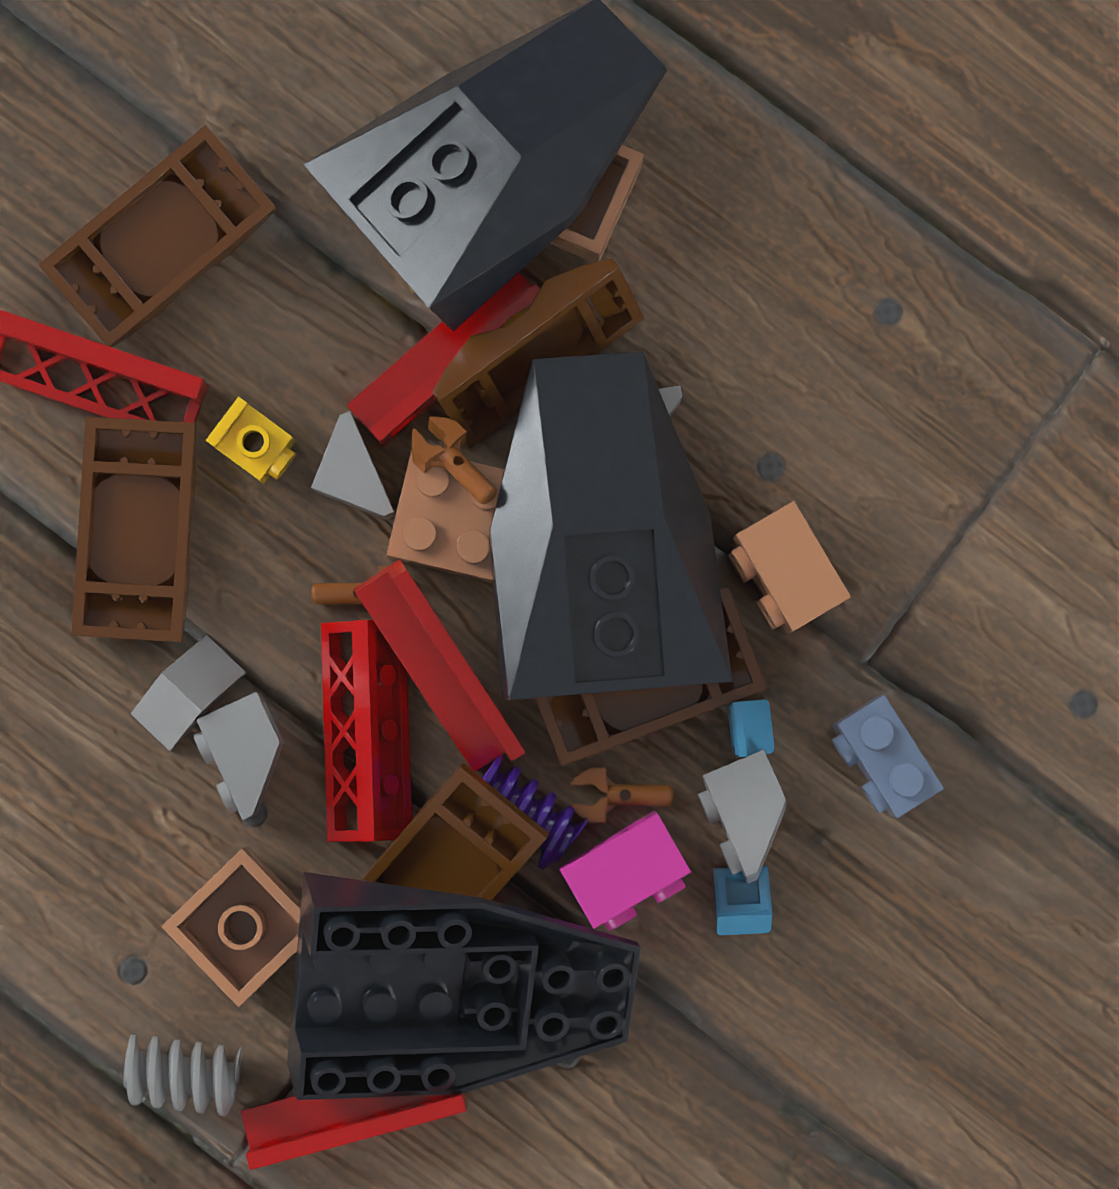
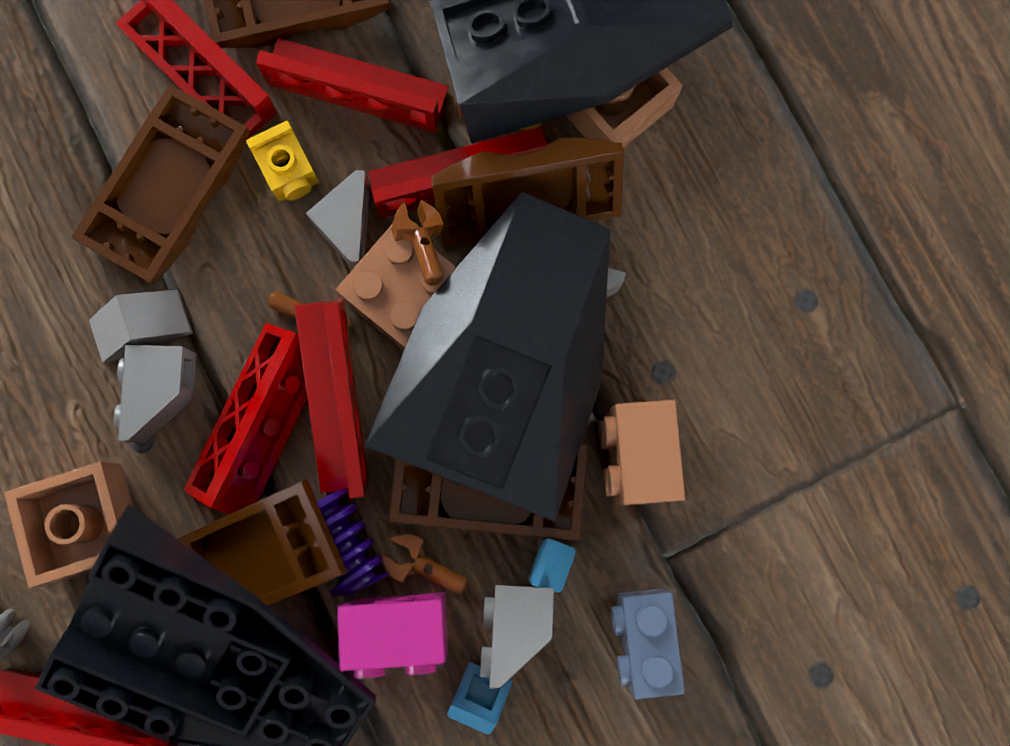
camera: 25 degrees right, 5 degrees down
(282, 313) = (354, 84): none -> red fence

